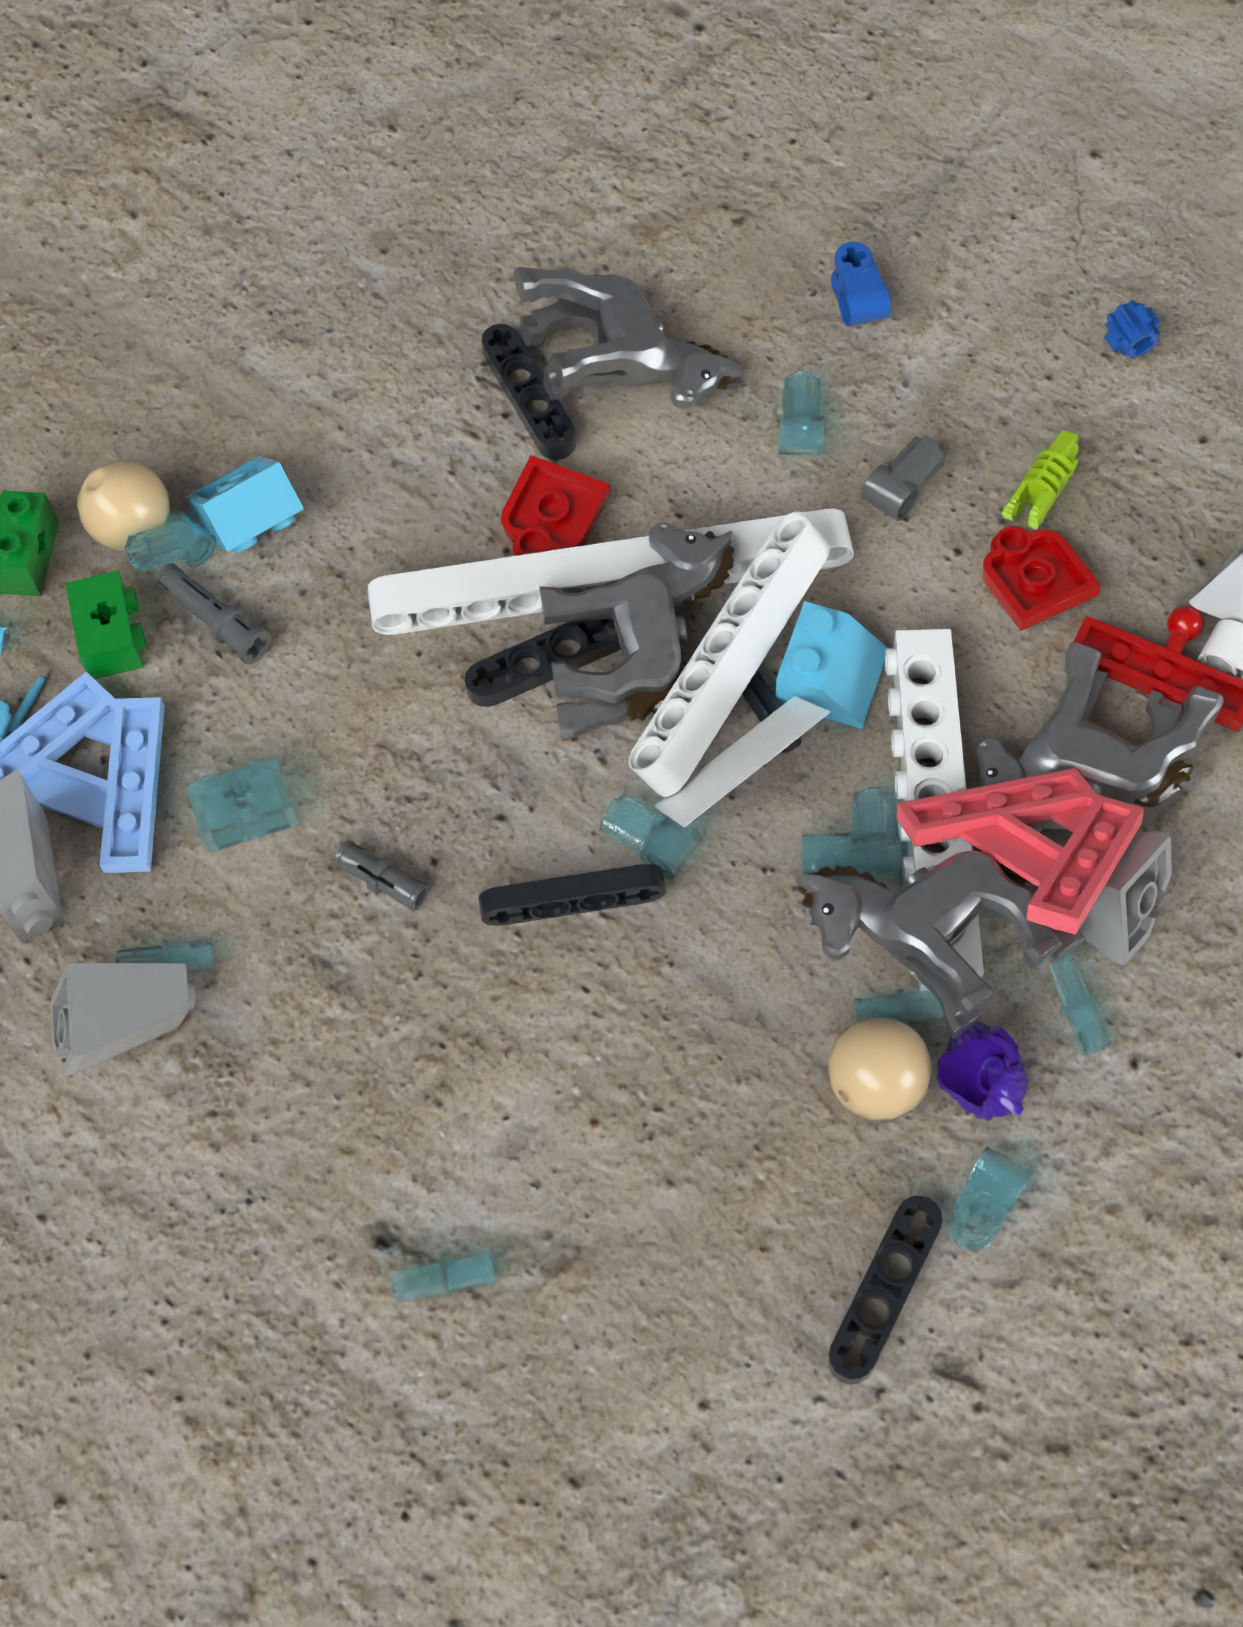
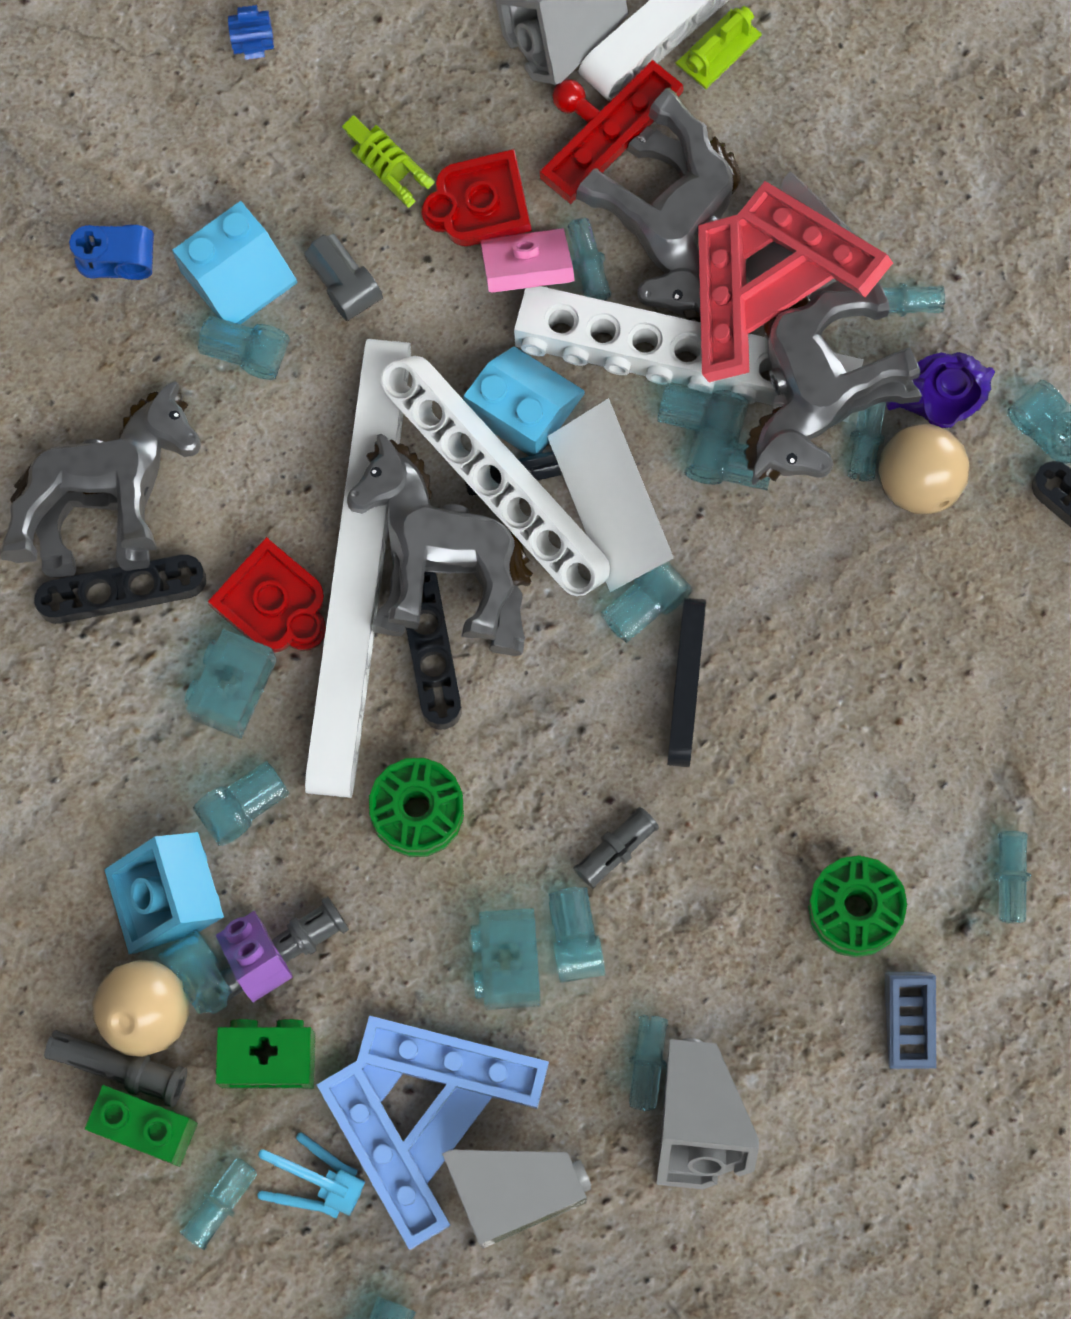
camera: 75 degrees left, 10 degrees up
(68, 532) = (136, 1072): none -> dark grey pin
(187, 583) = (253, 956): none -> medium lavender plate
(266, 864) = (576, 945): none -> clear light blue piece
(307, 1199) = (894, 1020): none -> sand blue slope
(337, 534) = (230, 809): none -> clear light blue piece
(367, 1090) = (863, 879): none -> green wheel
(368, 661) = (411, 780): none -> green wheel
(457, 499) = (233, 707): none -> clear light blue brick
(880, 384) = (234, 265): none -> medium azure slope
(979, 626) = (527, 260): none -> bright pink plate
(1006, 688) = (588, 260): none -> clear light blue axle

